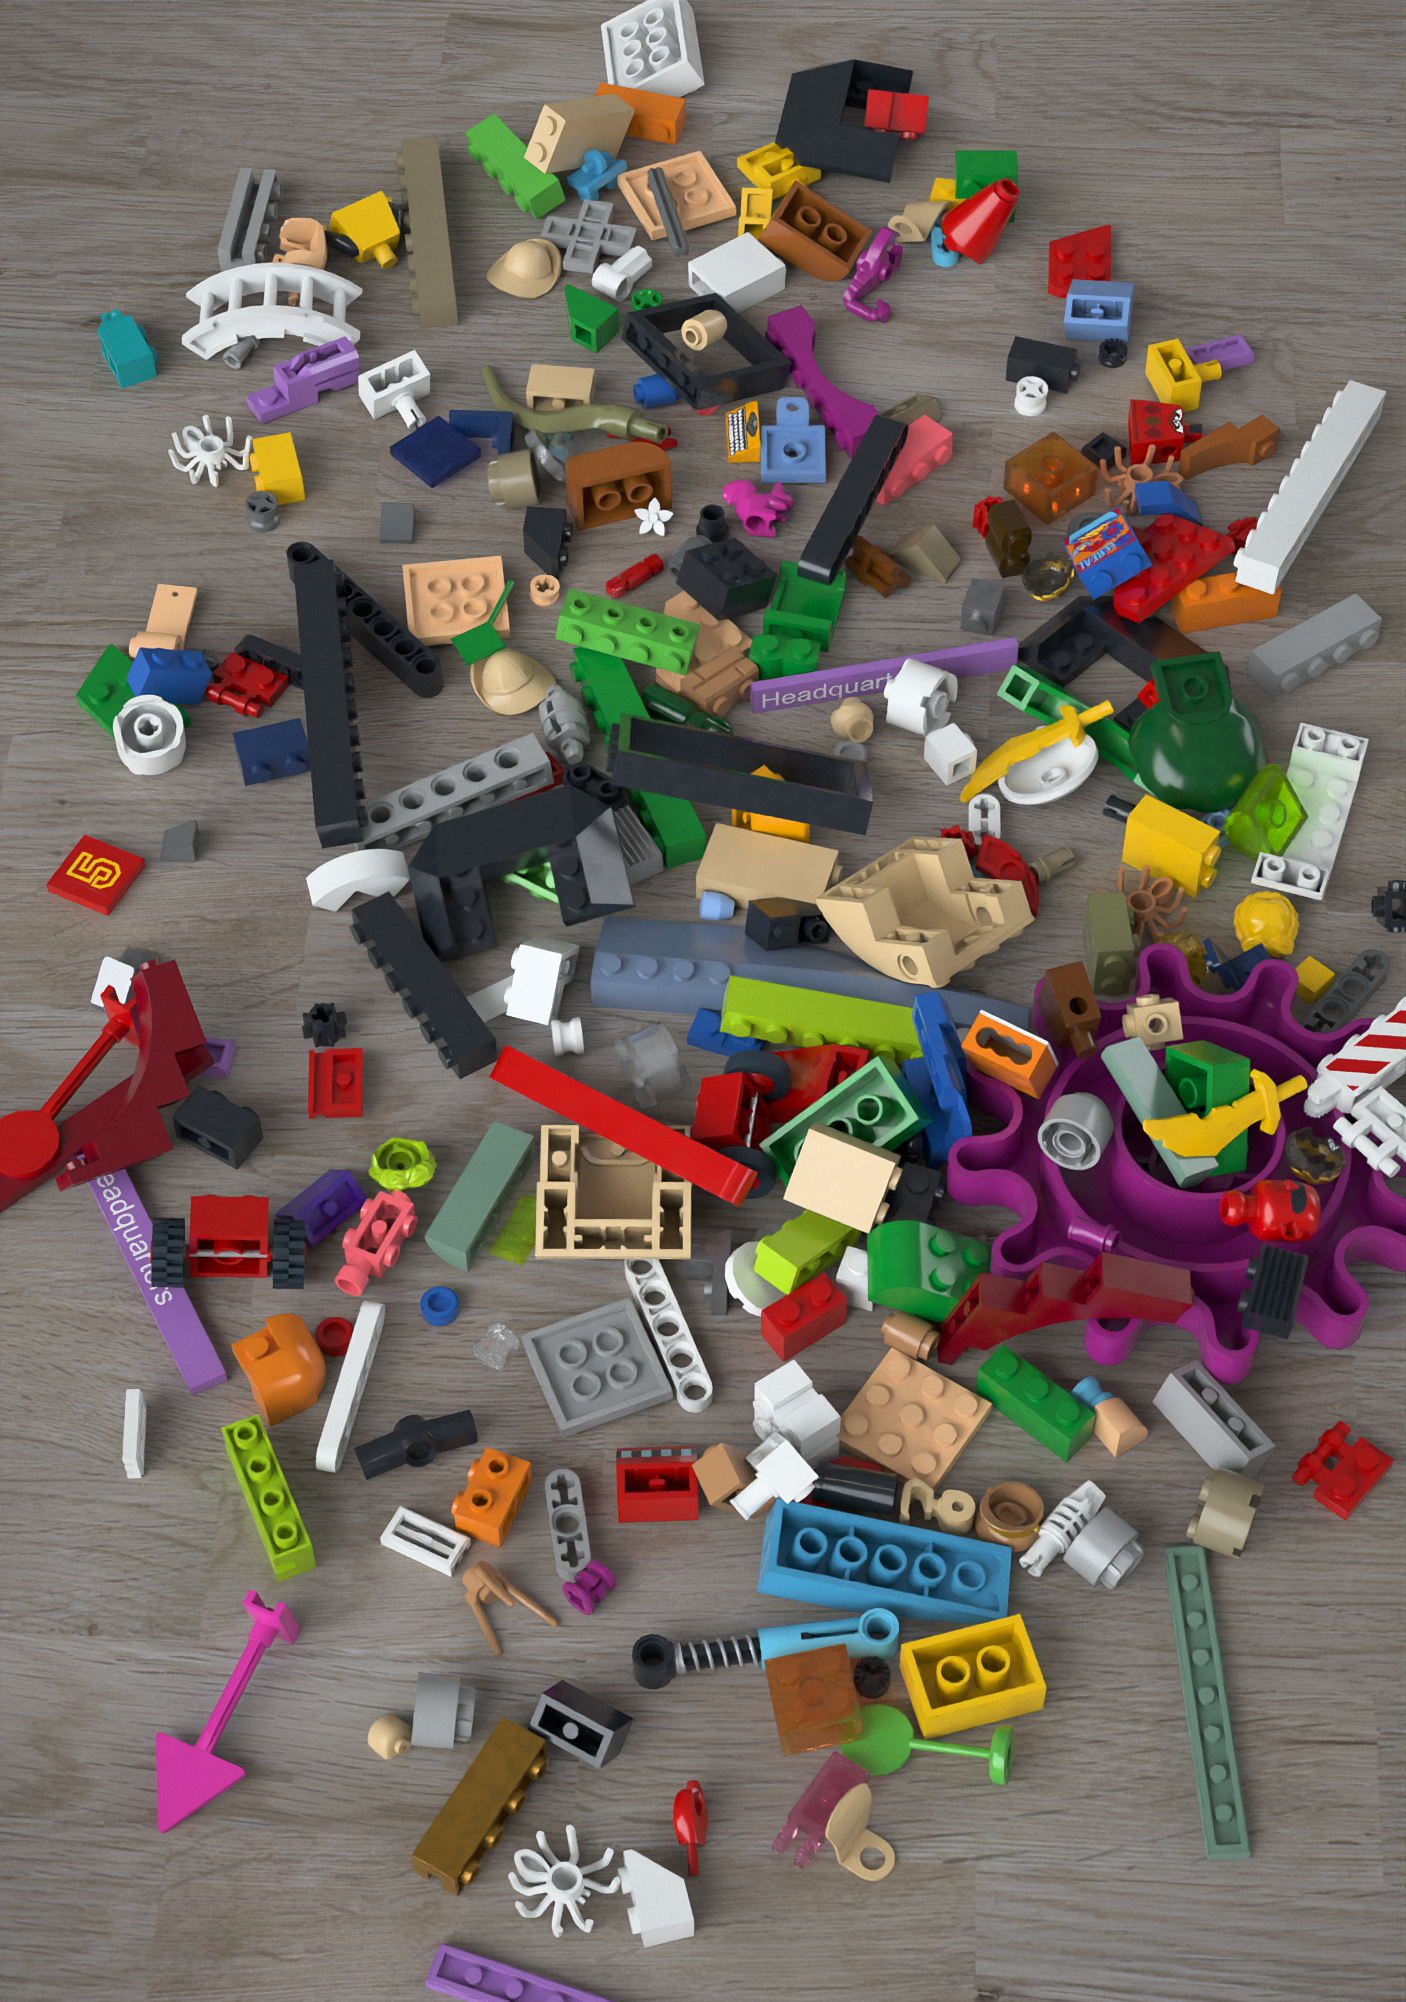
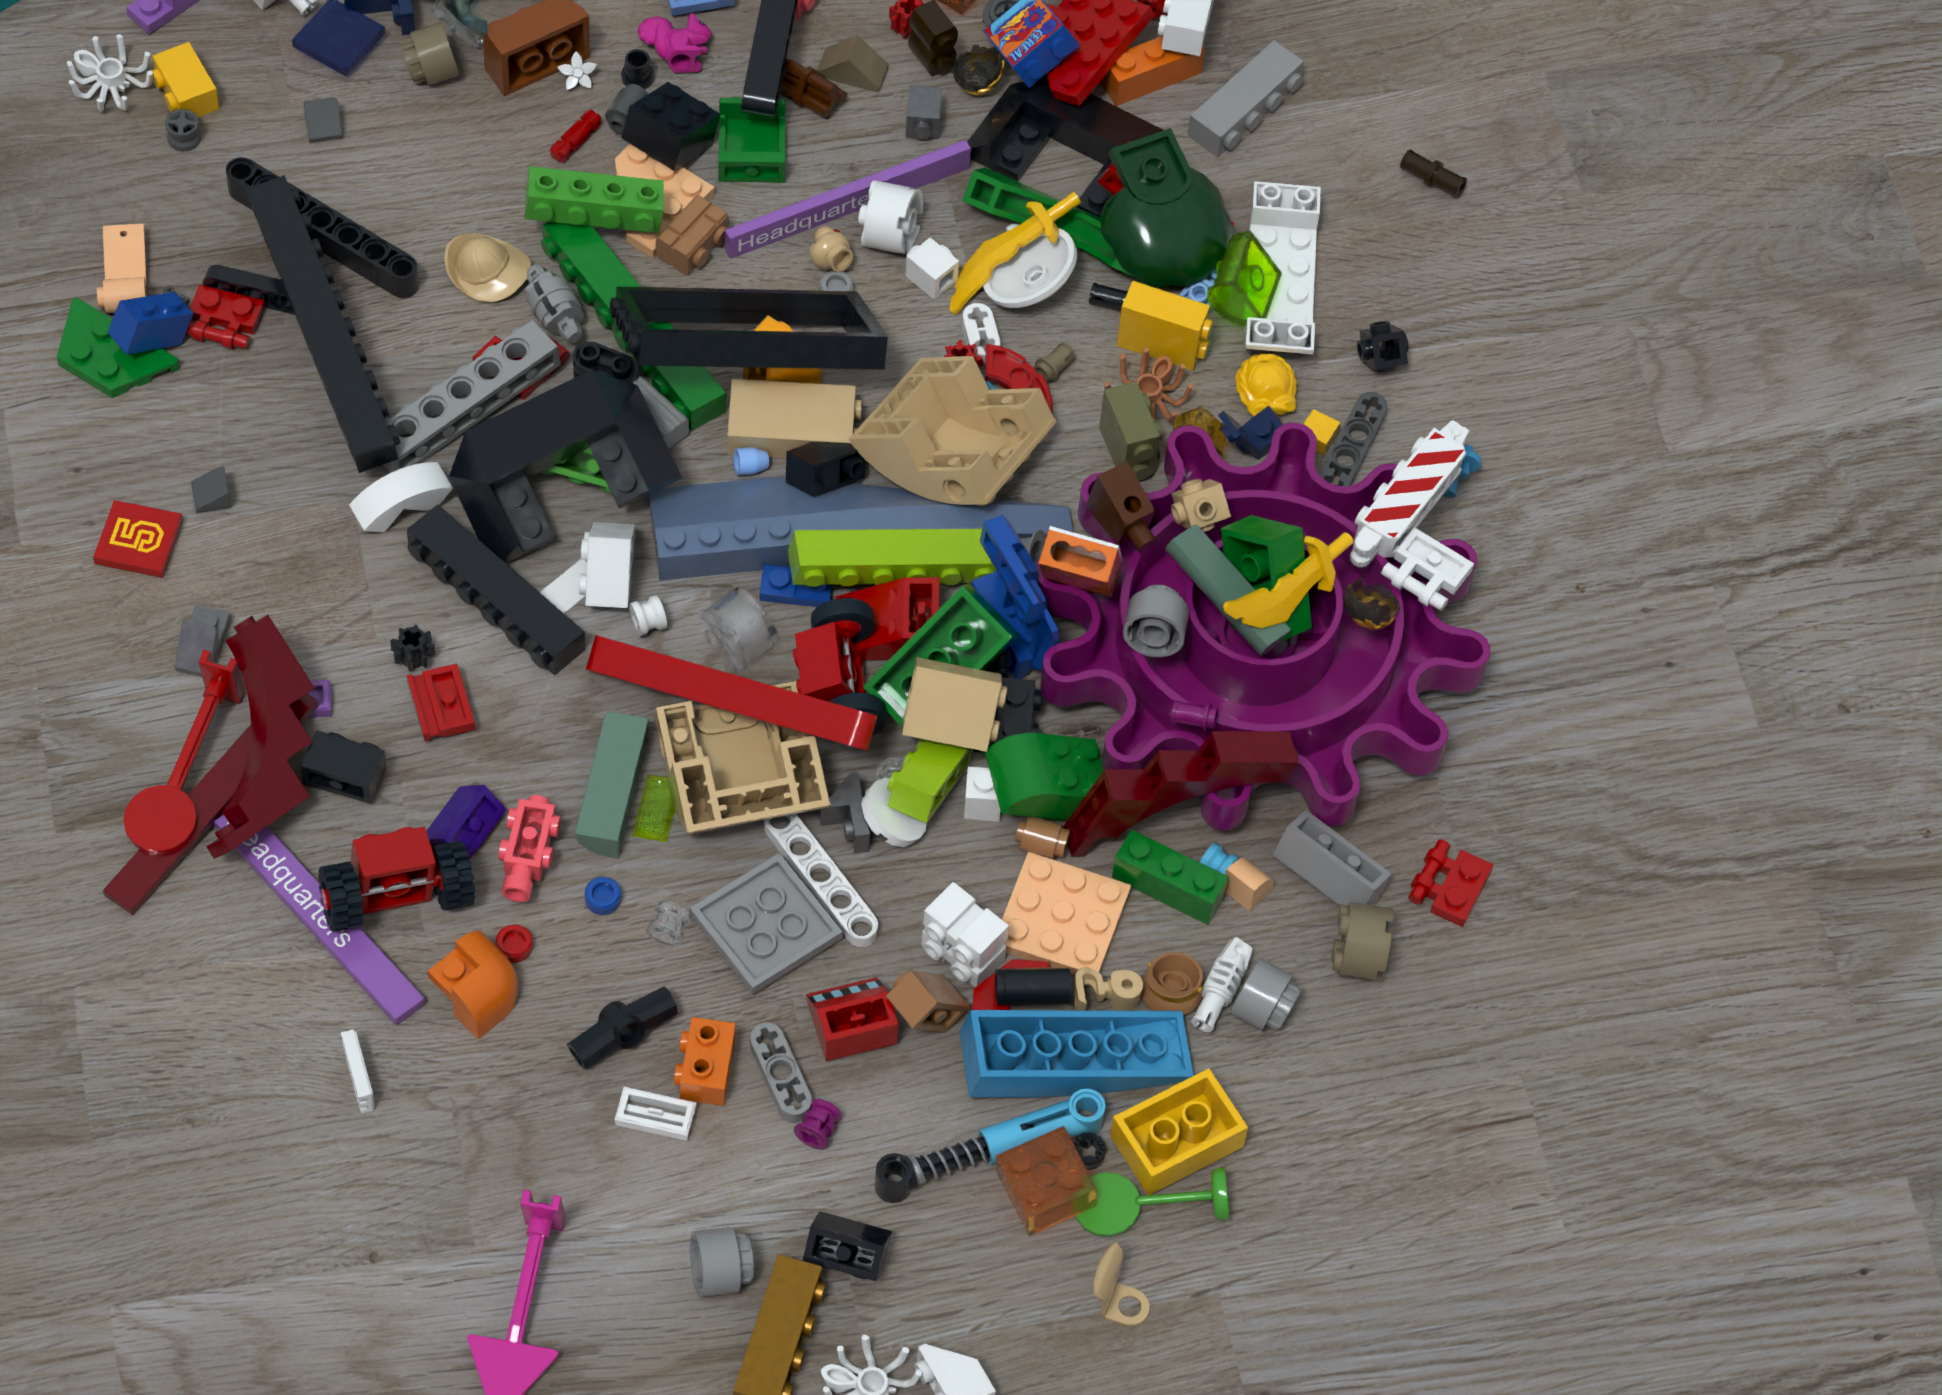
camera: 20 degrees left, 5 degrees up
(151, 753) = (163, 374): white brick -> none
(268, 1498) = (502, 1104): lime brick -> none
(272, 751) = (276, 382): dark blue brick -> none
(350, 1387) = (545, 986): white beam -> none
(390, 1736) = (676, 1293): tan piece -> none
(404, 1152) = (539, 759): lime hair -> none
(453, 598) = (408, 192): light nougat plate -> none
(483, 639) = (448, 230): green piece -> none
(488, 1586) = (726, 1141): medium nougat plant -> none
(539, 584) = (483, 161): light nougat bush -> none
(545, 538) = (477, 112): black slope -> none
(675, 709) = (665, 271): dark green piece -> none
(690, 1822) = (966, 1310): red hand -> none
(779, 1474) = (970, 987): white brick -> none
(783, 657) = (748, 199): green brick -> none
(803, 1316) = (942, 839): red brick -> none
(817, 1804) = (1076, 1270): clear pink hinge -> none
(1206, 1704) = (1381, 1110): sand green tile -> none
(1273, 1291) = (1364, 735): black brick -> none
(1274, 1210) = (1350, 662): red piece -> none

